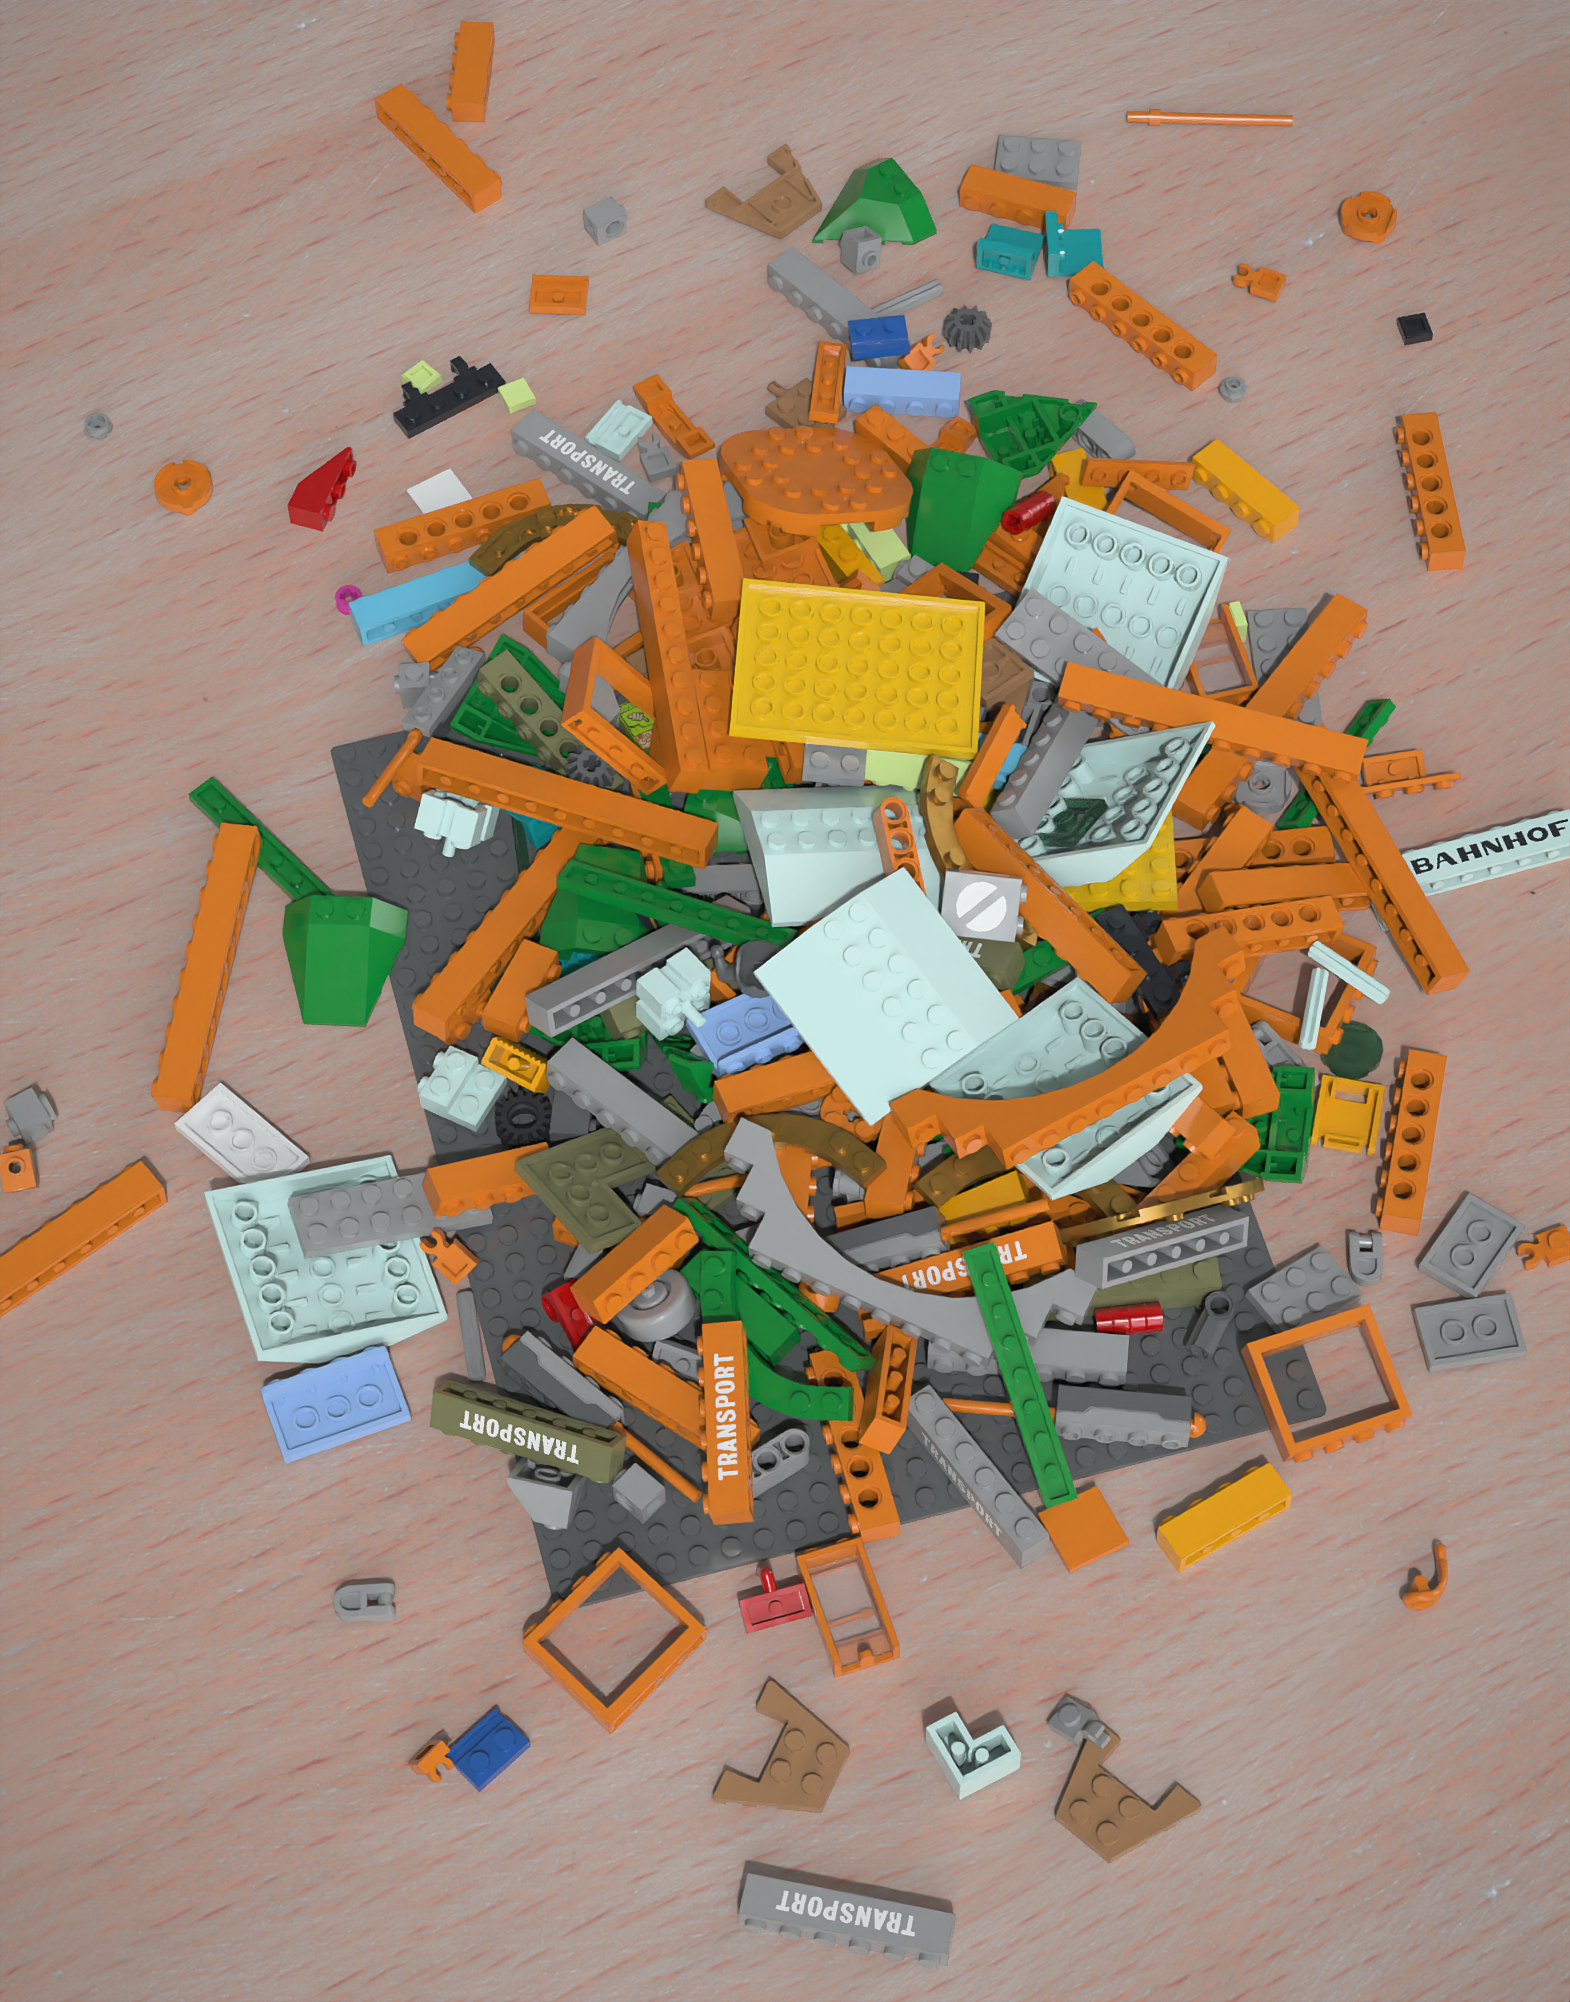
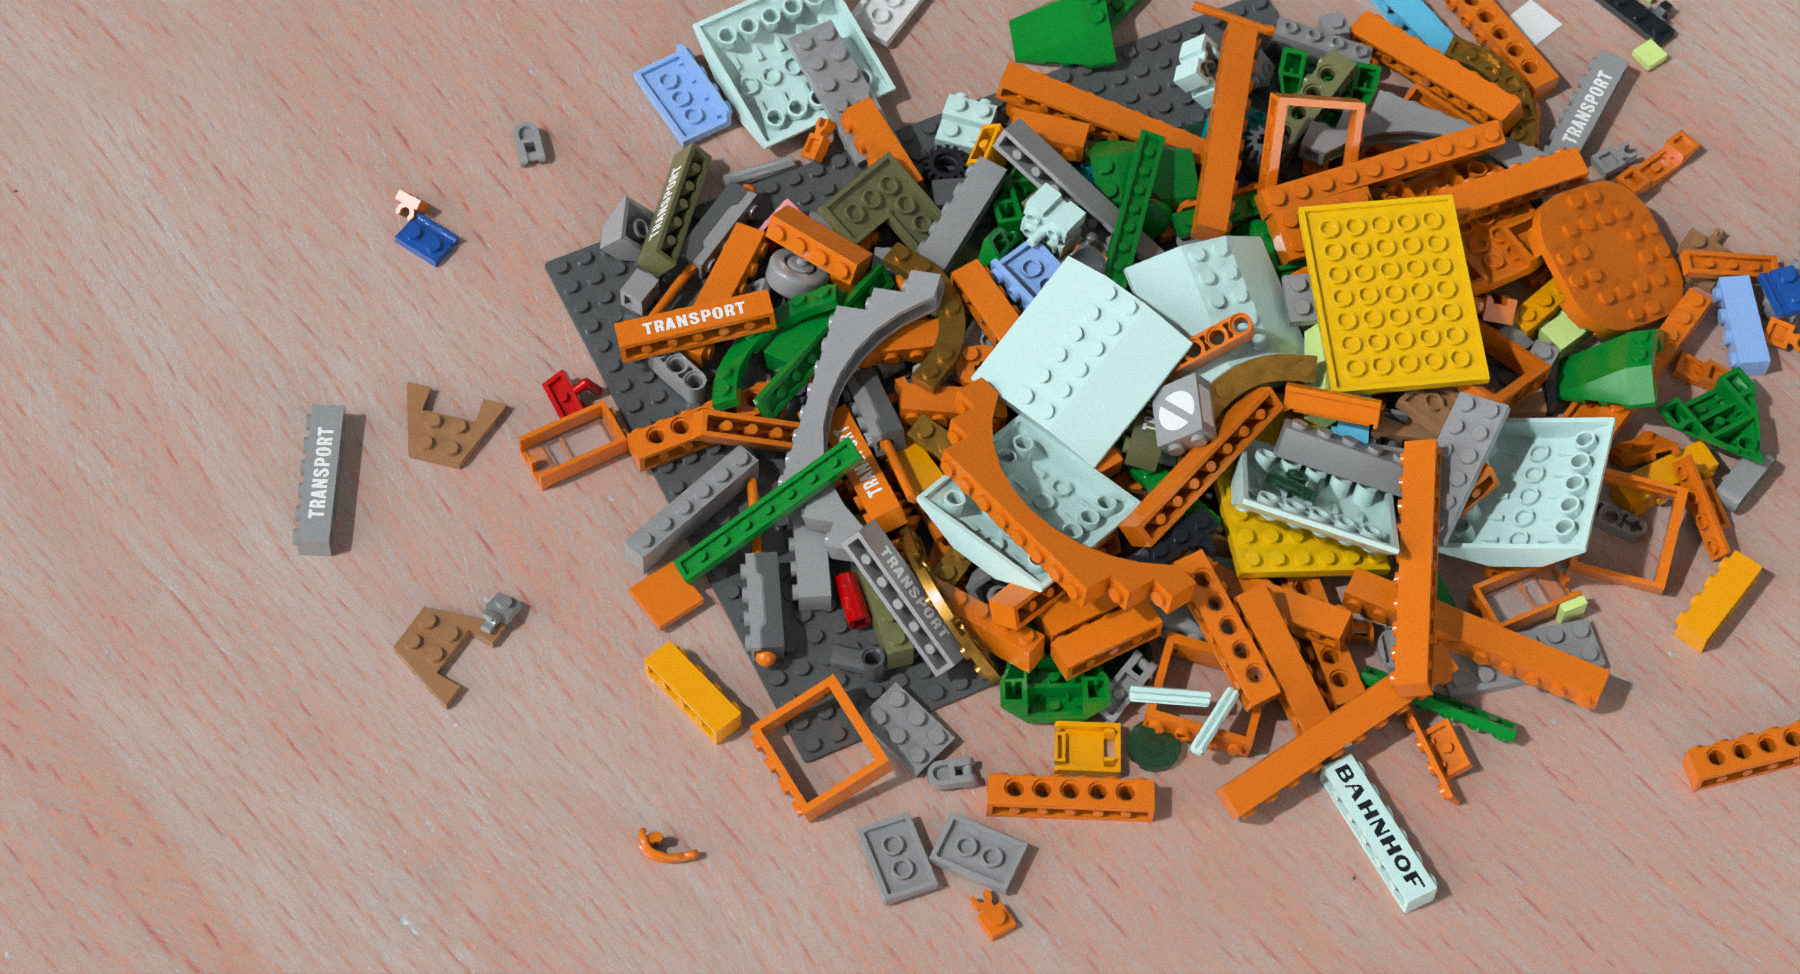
camera: 75 degrees right, 0 degrees up
(558, 294) = (1763, 64): orange plate -> none
(619, 430) = (1634, 128): light aqua plate -> none
(650, 1679) = (529, 346): orange window -> none
(970, 1762) = (456, 537): light aqua brick -> none
(1029, 512) = (1627, 424): red axle -> none

